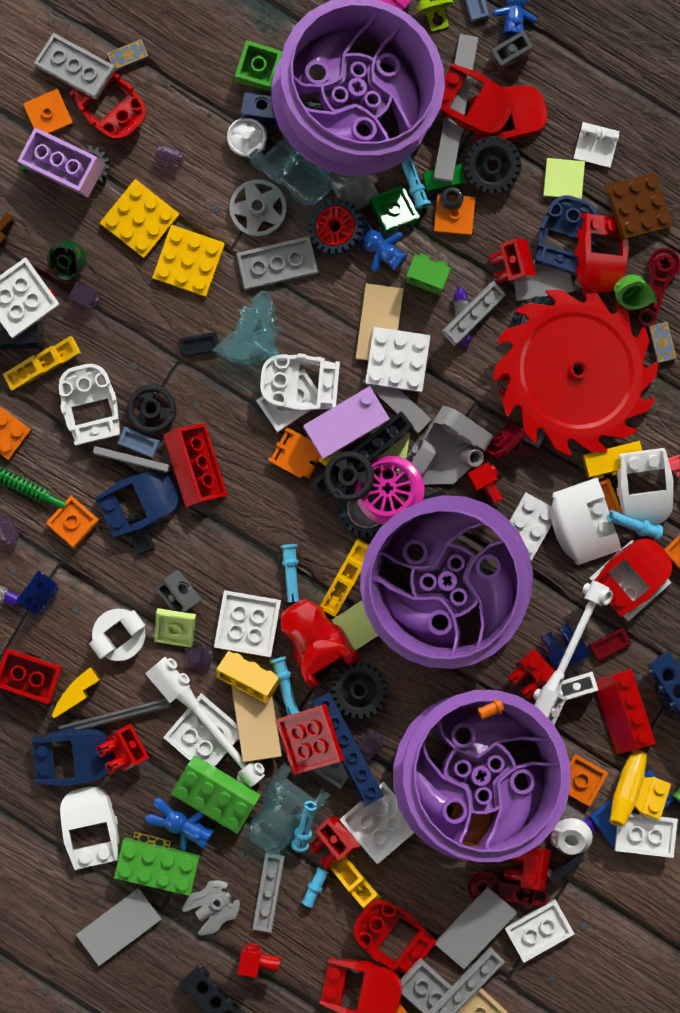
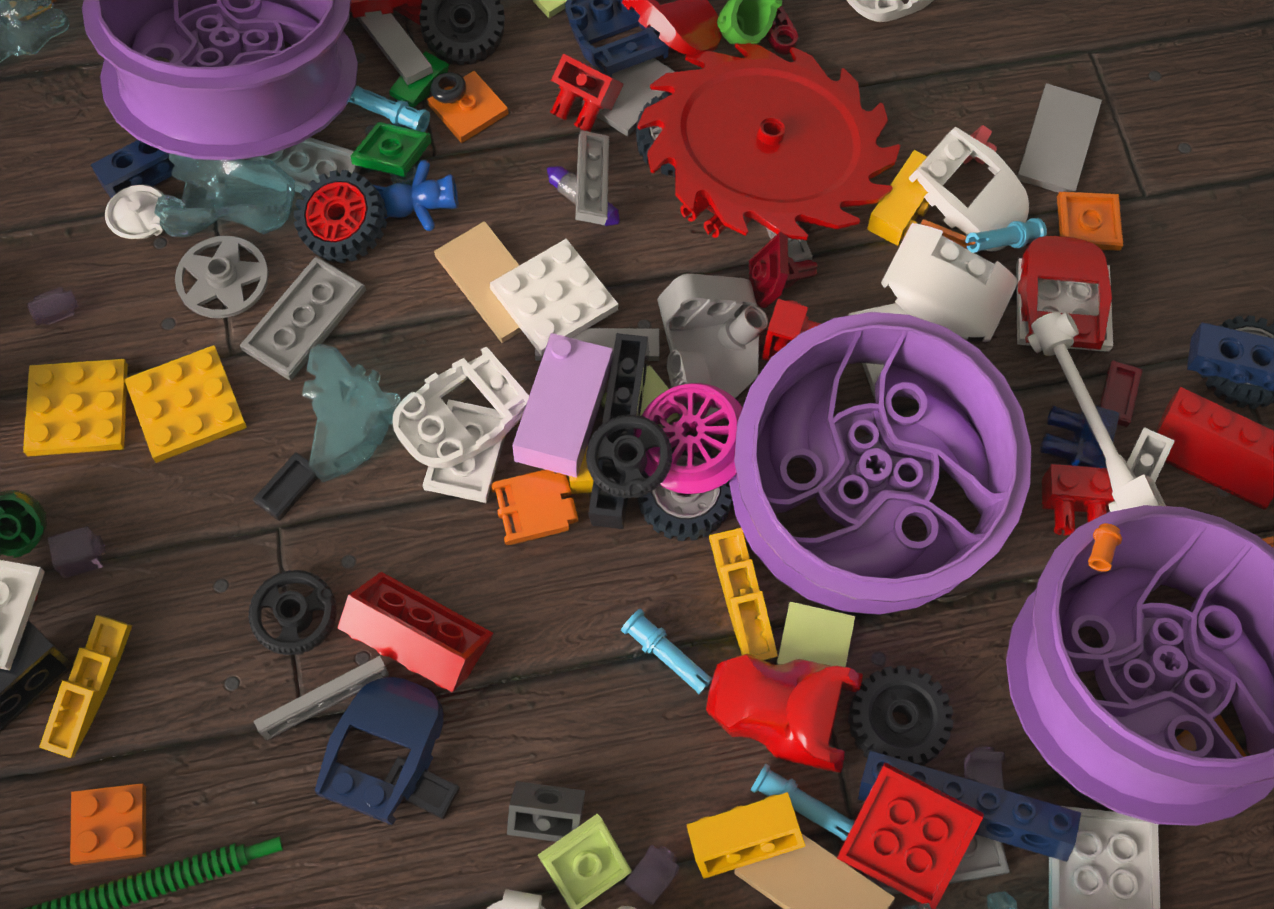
camera: 50 degrees left, 20 degrees down
(73, 522) = (311, 855): orange plate -> none
(83, 386) = (177, 657): white slope -> none
(138, 442) = (311, 670): sand blue tile -> none
(247, 623) = (675, 769): white plate -> none
(257, 66) = (84, 128): bright green brick -> none
(428, 274) = (499, 177): bright green brick -> none
(662, 342) = (827, 48): sand blue tile -> none

